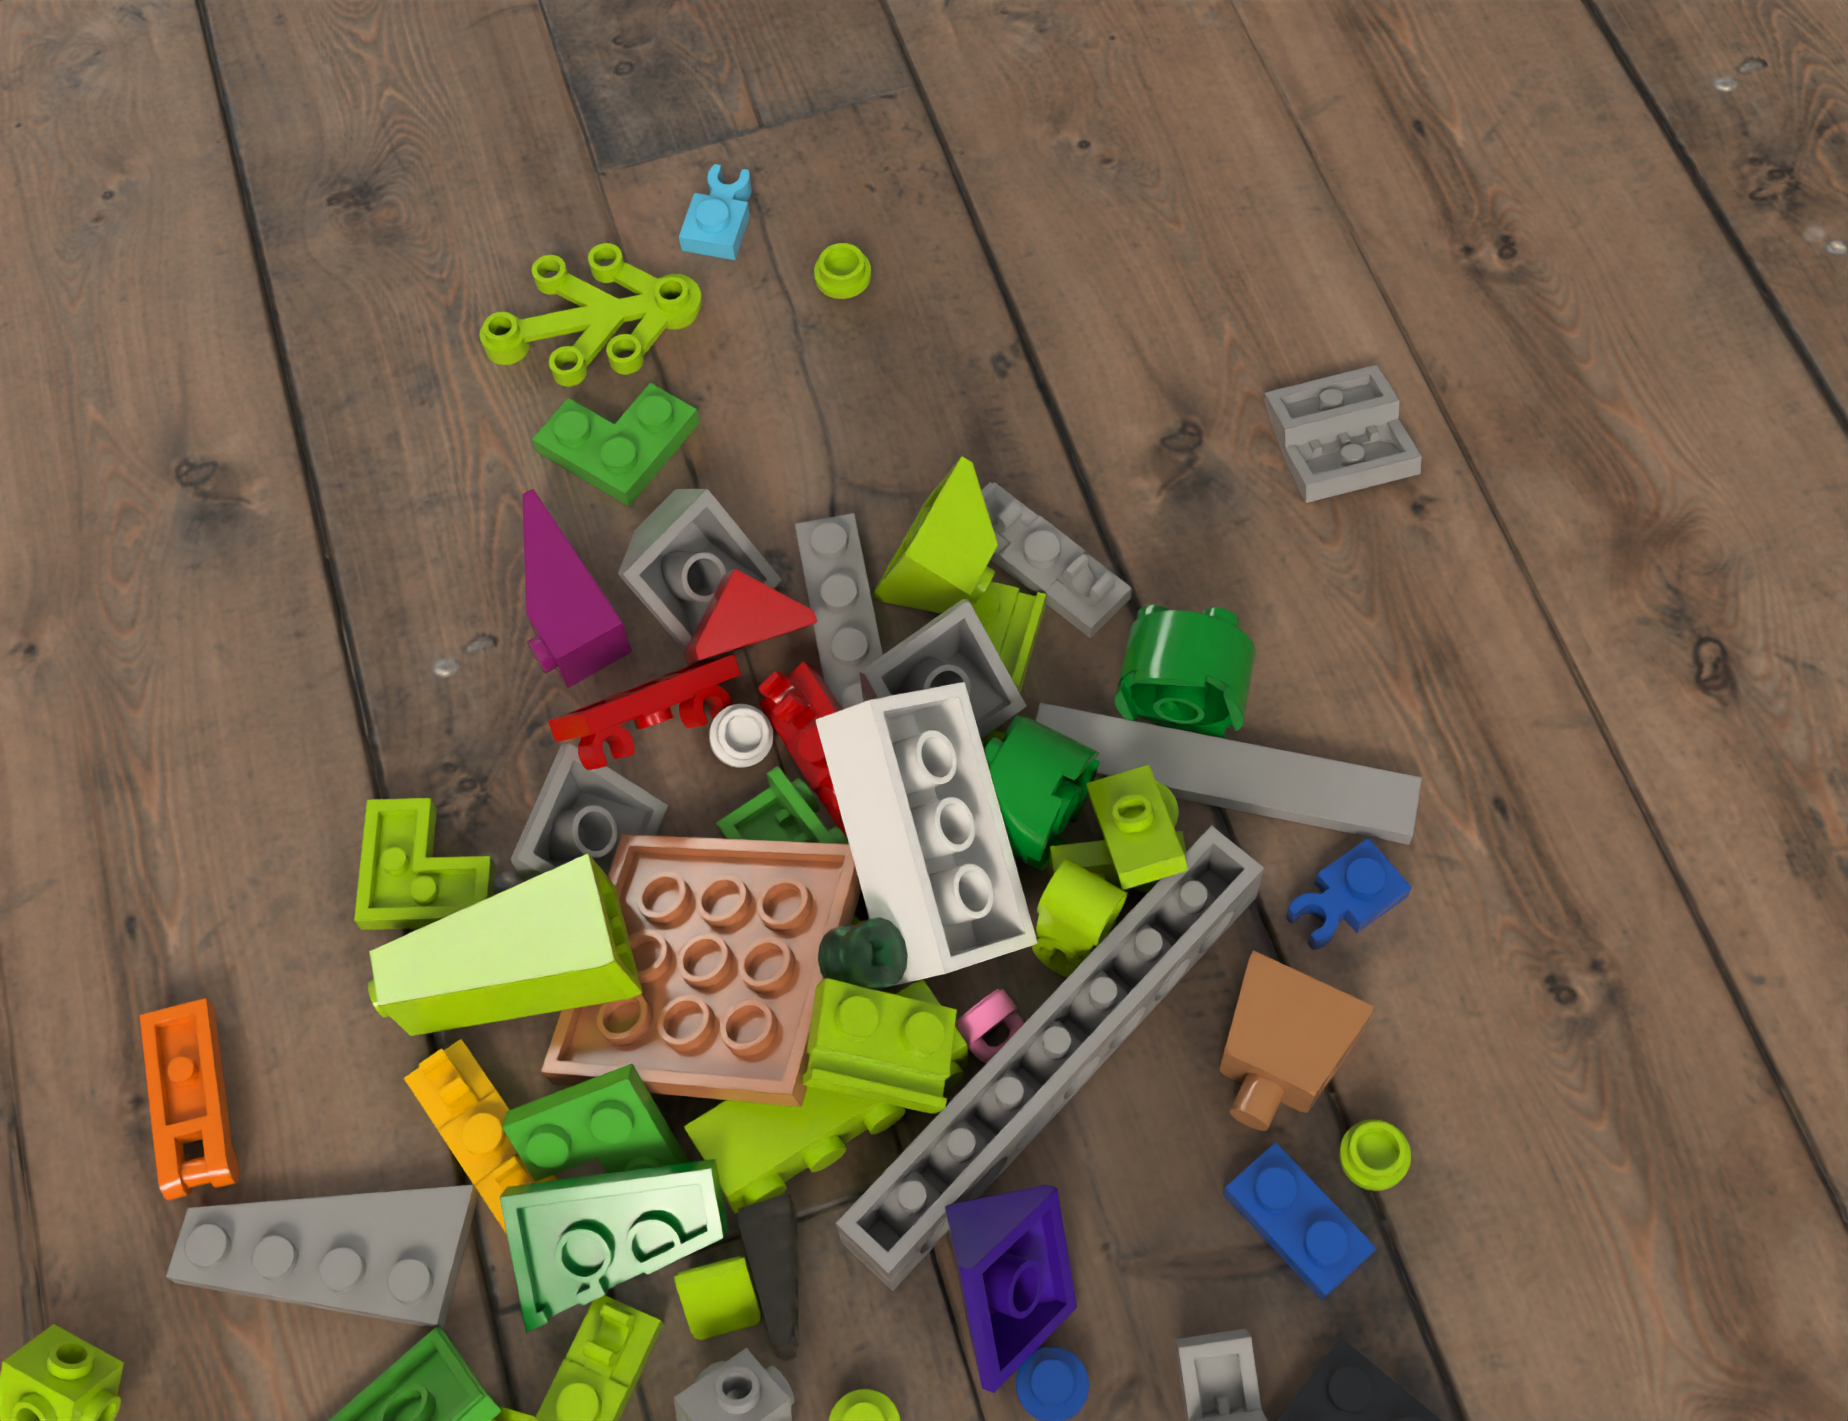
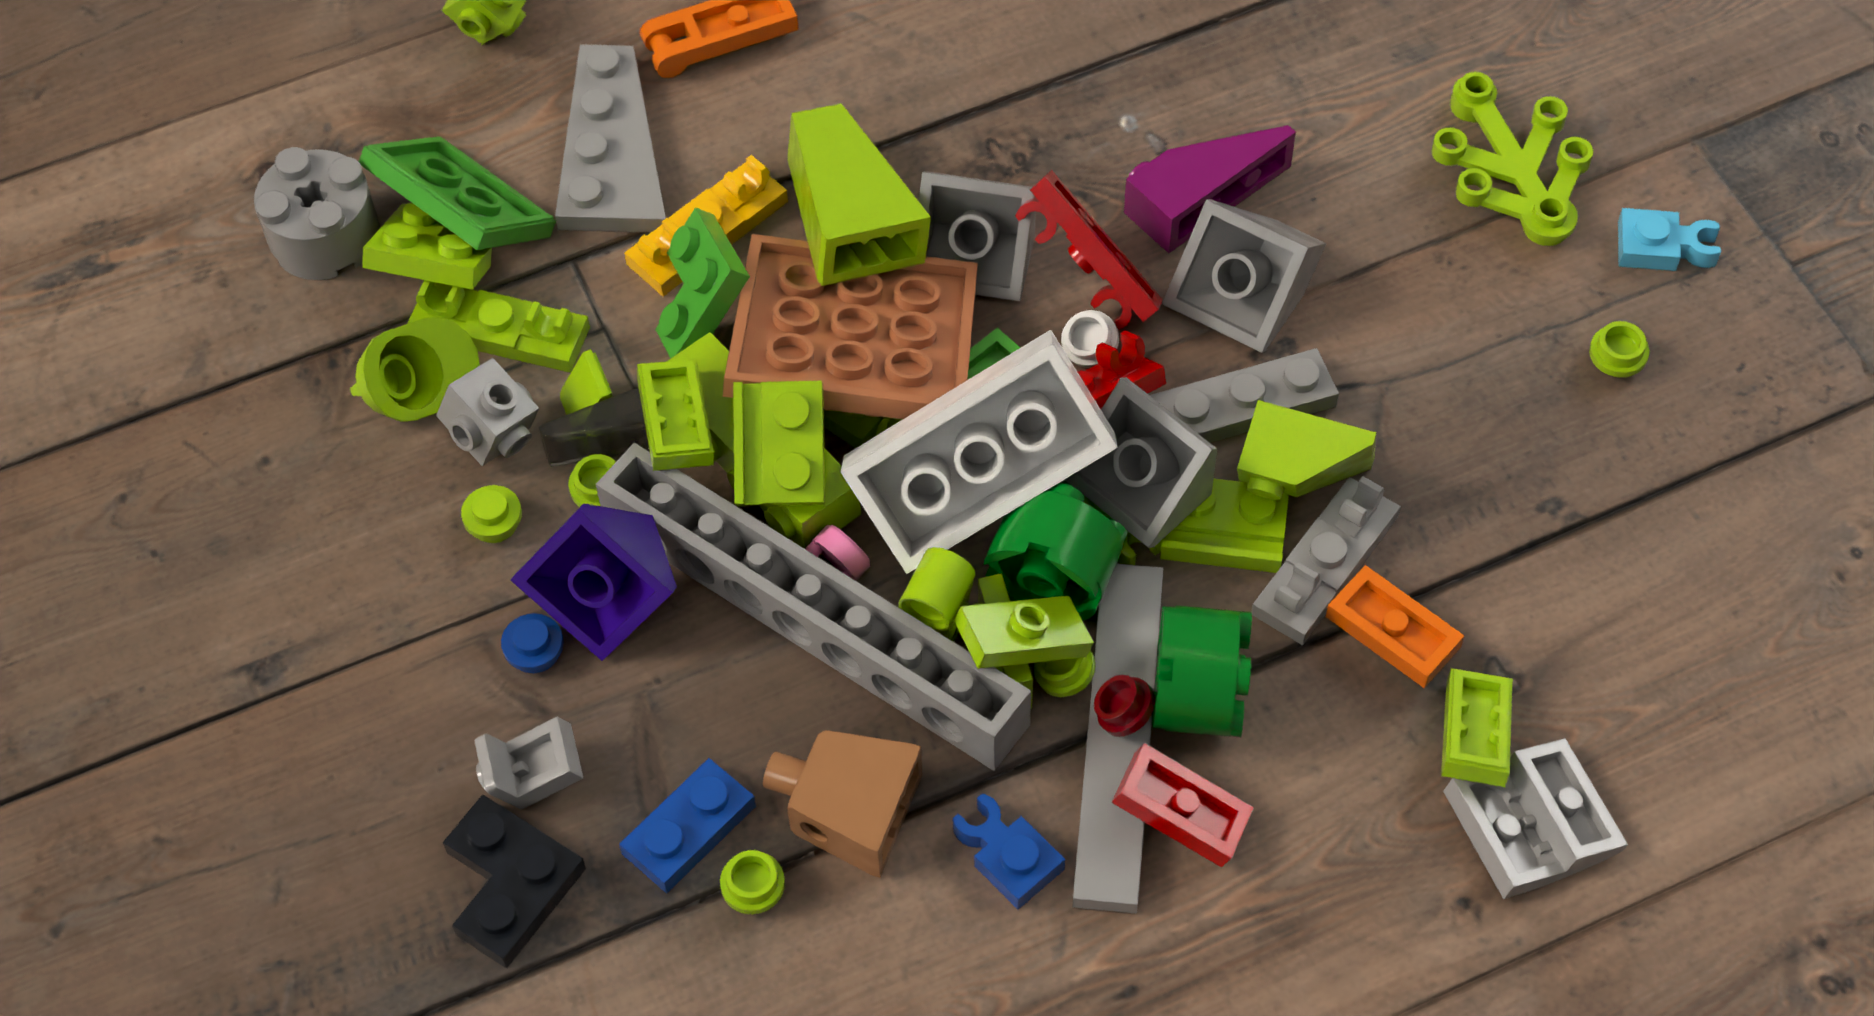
camera: 80 degrees right, 5 degrees down
(401, 878) = (921, 120): lime plate -> none
(599, 1230) = (624, 297): wing -> none
(618, 455) = (1371, 210): bright green plate -> none
(744, 615) = (1201, 312): red slope -> none
(808, 1169) = (675, 414): none -> lime plate
(842, 1294) = (586, 475): none -> lime plate
(864, 954) = (858, 404): clear green wheel -> none
(1131, 508) = (1394, 626): none -> orange plate
(1215, 750) = (1124, 705): none -> dark red plate
(1250, 458) = (1477, 727): none -> lime plate
(1323, 718) = (1182, 805): none -> plate

